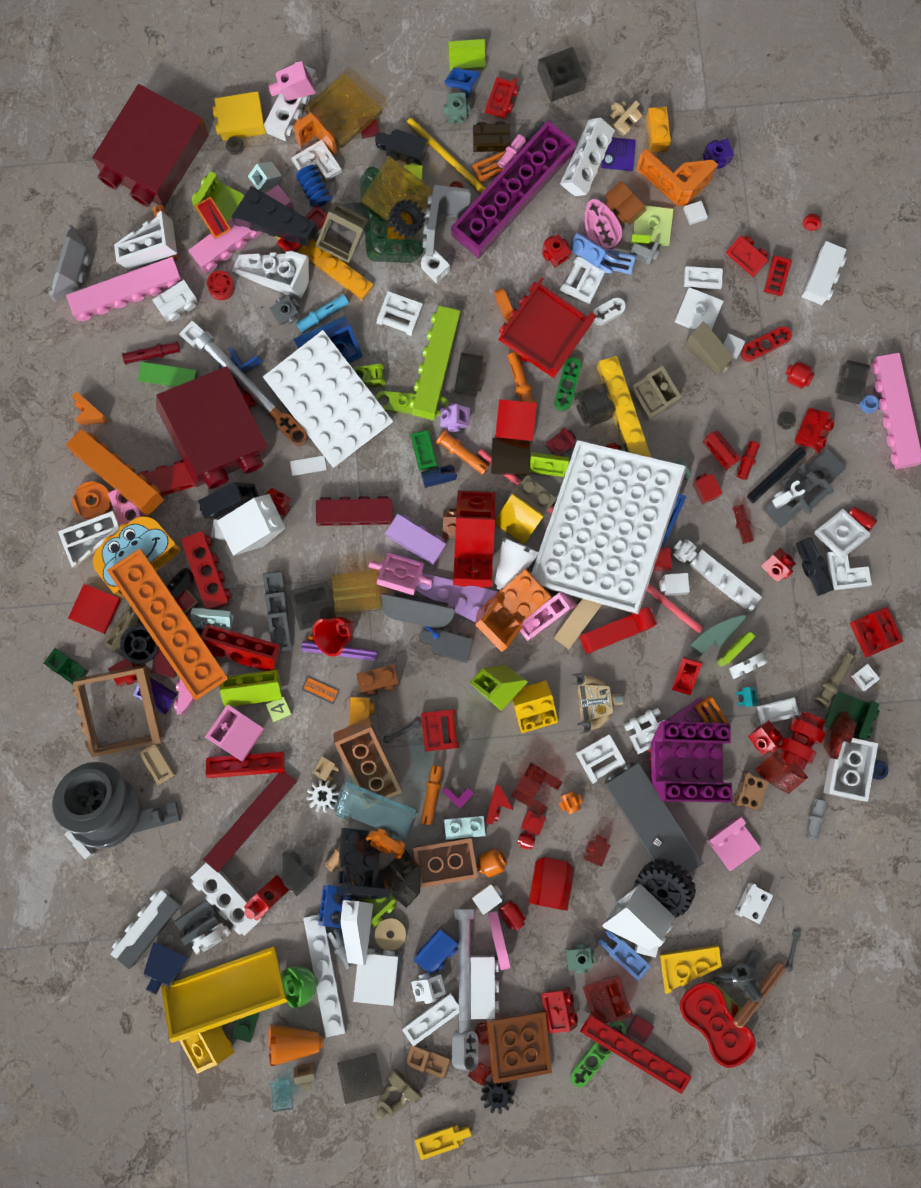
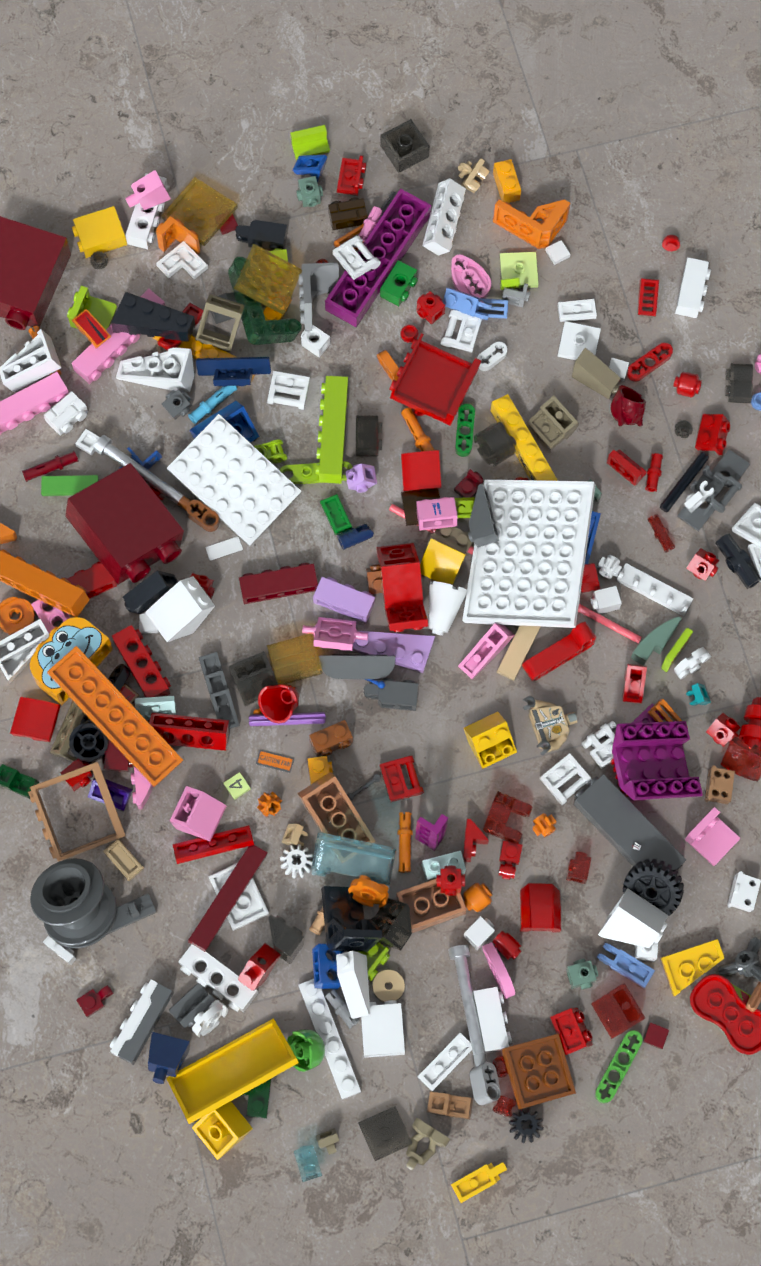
camera: 10 degrees left, 10 degrees down
(104, 898) = (92, 1001): none -> dark red plate
(221, 285) = (108, 392): red wheel -> none
(251, 688) = (207, 768): lime brick -> none
(265, 176) = (134, 282): light aqua brick -> none
(270, 831) = (249, 906): none -> white tile
(291, 1043) = (308, 1109): orange cone -> none
(306, 734) = (269, 804): none -> orange gear
(313, 186) = (182, 285): blue piece -> none
(347, 285) = (233, 371): none -> dark blue bracket
(397, 222) = (285, 290): black tyre -> none
(428, 987) = (436, 1029): white brick -> none
(436, 950) = (437, 991): blue slope -> none
(446, 155) = (305, 236): yellow piece -> none
(455, 446) = (366, 506): orange pin -> none
(463, 841) = (446, 886): none -> red brick
(484, 188) = (352, 261): none -> white plate
(498, 684) = (450, 723): lime slope -> none
(507, 610) = (451, 645): orange bracket -> none
(522, 468) = (436, 513): none -> bright pink brick
(530, 274) = (409, 333): none -> red plate
(532, 209) = (400, 274): none -> green brick
(566, 484) = (481, 521): none -> dark grey slope
(619, 155) = (474, 211): dark purple sticker -> none
(625, 203) = (488, 253): dark orange brick -> none
(635, 1053) = (656, 1059): red tile -> none
(707, 488) = (619, 504): red brick -> none
(719, 151) = (571, 192): dark purple brick -> none
(735, 388) = (628, 406): none -> dark red helmet
(747, 255) = (615, 283): red bracket -> none
(778, 710) = (731, 703): white tile -> none

